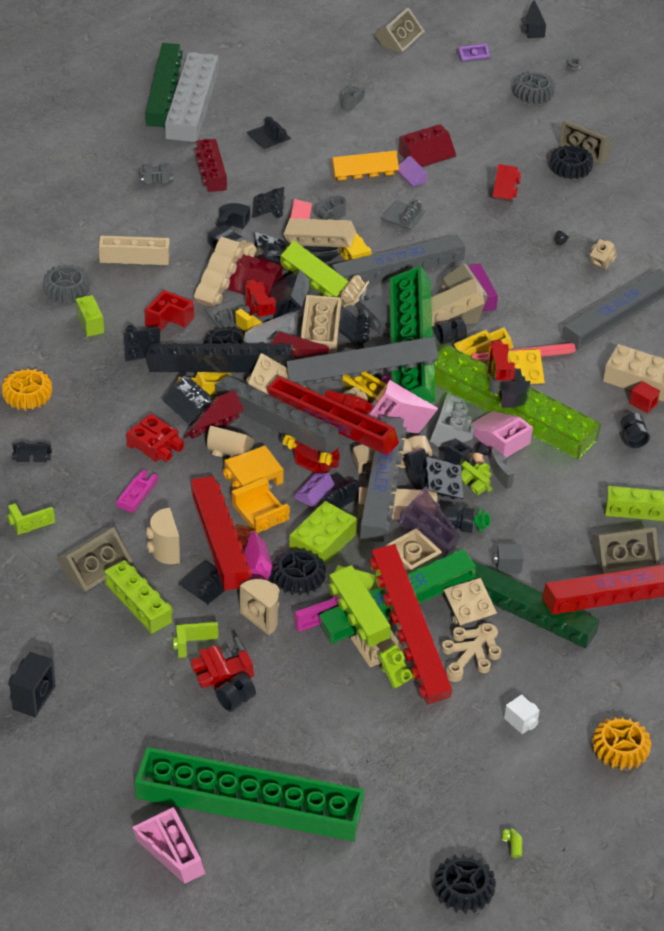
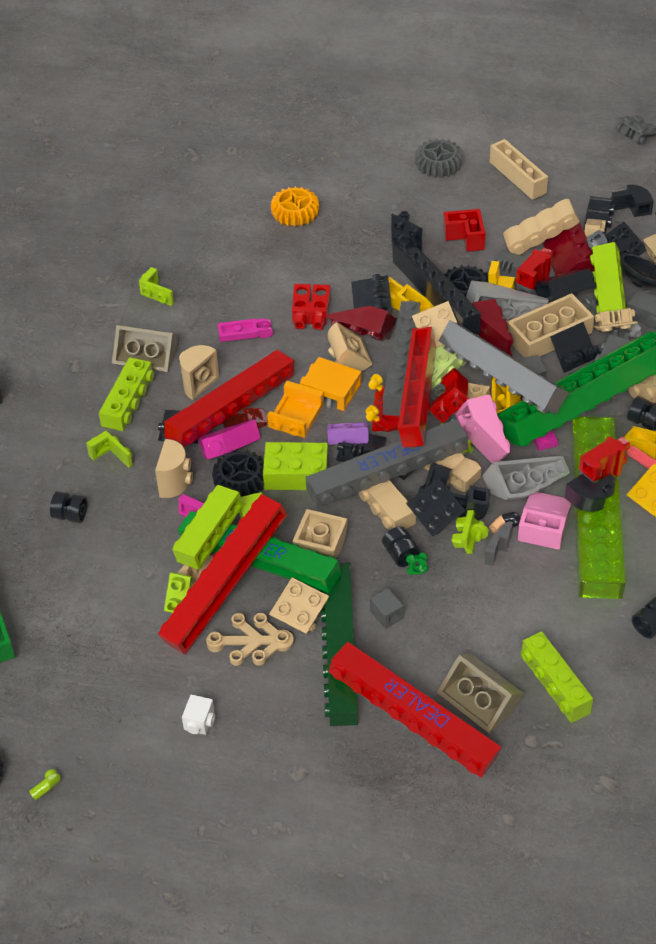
camera: 60 degrees right, 5 degrees up
(22, 450) = (234, 253): black hinge -> none
(89, 315) = (413, 190): lime brick -> none
(221, 665) = (94, 482): red hips -> none
(430, 521) = (365, 525): clear purple wedge -> none
(626, 745) = (233, 817): light orange gear -> none

